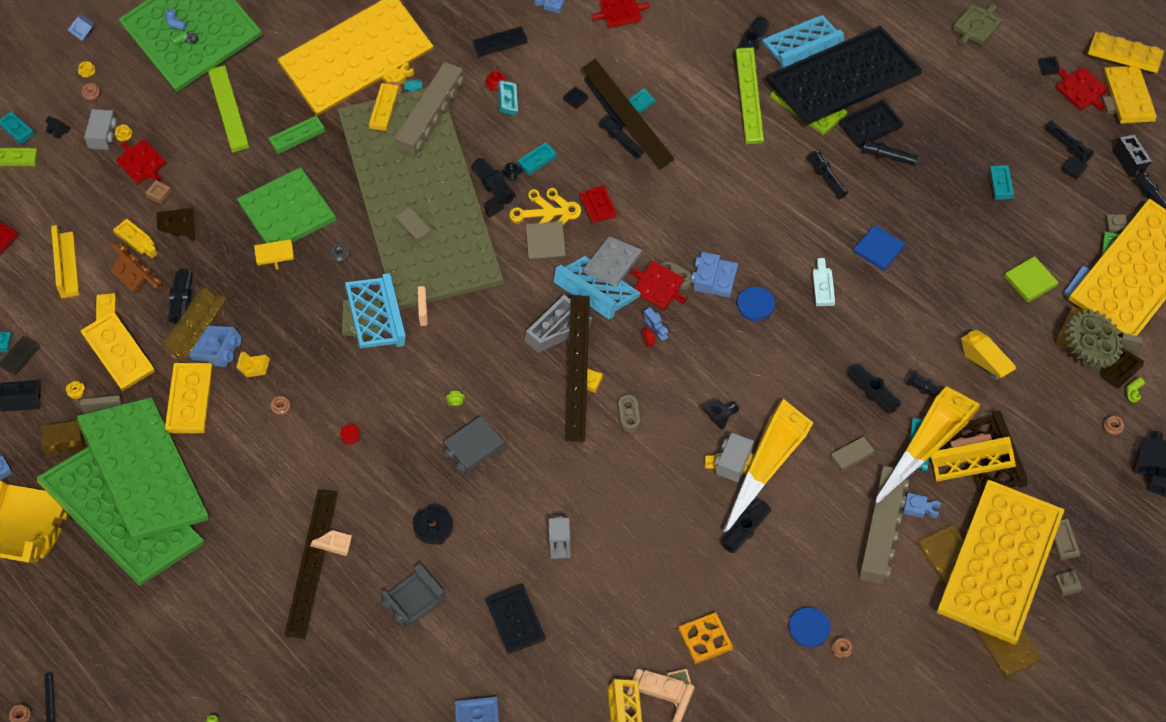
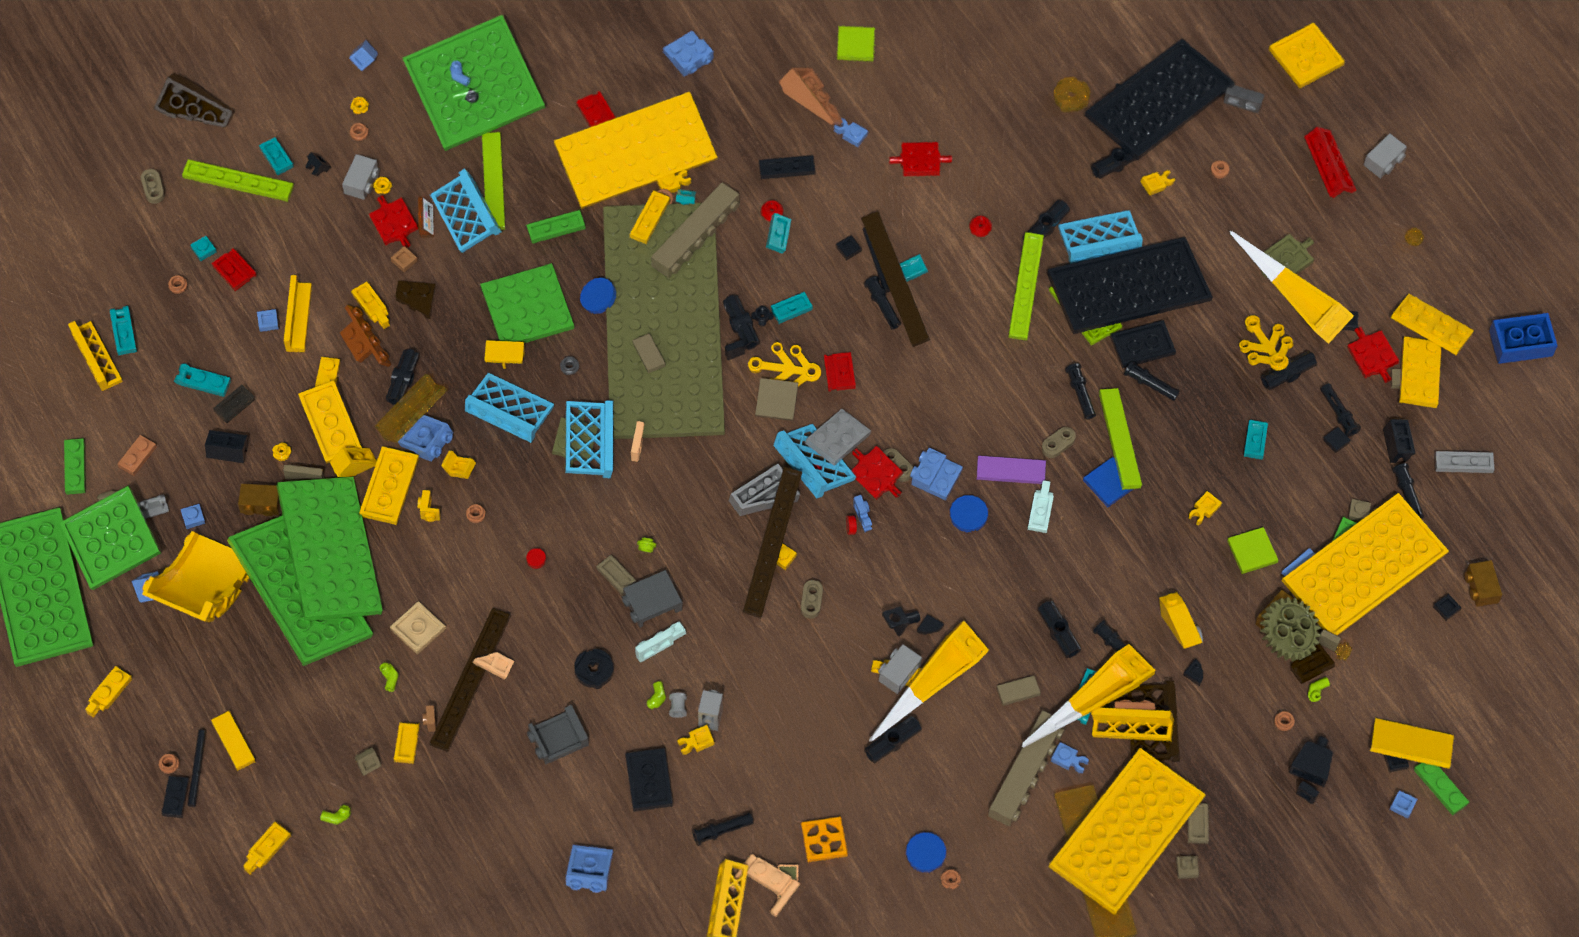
camera: 10 degrees right, 5 degrees up
(37, 273) = (267, 320): none -> medium blue plate
(82, 677) = (233, 741): none -> yellow tile
(147, 383) = (352, 461): none -> yellow slope
(171, 152) = (425, 218): none -> slope
(215, 125) = (480, 207): none -> medium azure fence
(225, 666) = (367, 761): none -> dark tan tile
(230, 576) = (390, 674): none -> lime arm
(232, 414) = (426, 512): none -> yellow bracket
(247, 525) = (417, 627): none -> tan tile
(261, 639) = (406, 743): none -> yellow tile
(279, 609) = (429, 718): none -> medium nougat plate
(287, 312) = (501, 417): none -> medium azure fence
(307, 28) = (595, 109): none -> red plate
(352, 185) = (598, 295): none -> blue tile
(431, 432) = (615, 574): none -> dark tan tile
(491, 485) = (659, 642): none -> light aqua hinge
(503, 539) = (659, 696): none -> lime arm
(525, 541) = (677, 705): none -> light grey bush
(555, 568) = (699, 739): none -> yellow plate
(593, 654) = (713, 830): none -> black pin
(691, 55) = (980, 231): none -> red plate
(750, 412) = (930, 625): none -> black tile
(783, 257) = (1011, 469): none -> medium lavender piece
(821, 222) = (1059, 441): none -> dark tan plate
(877, 208) = (1120, 439): none -> lime tile
(975, 250) = (1205, 506): none -> yellow plate
(999, 109) = (1253, 325): none -> yellow plant
(1011, 117) = (1292, 372): none -> black piece
(1014, 400) = (1195, 672): none -> black tile
(1018, 59) = (1318, 309): none -> yellow plate
(1147, 350) = (1343, 651): none -> clear yellow plate

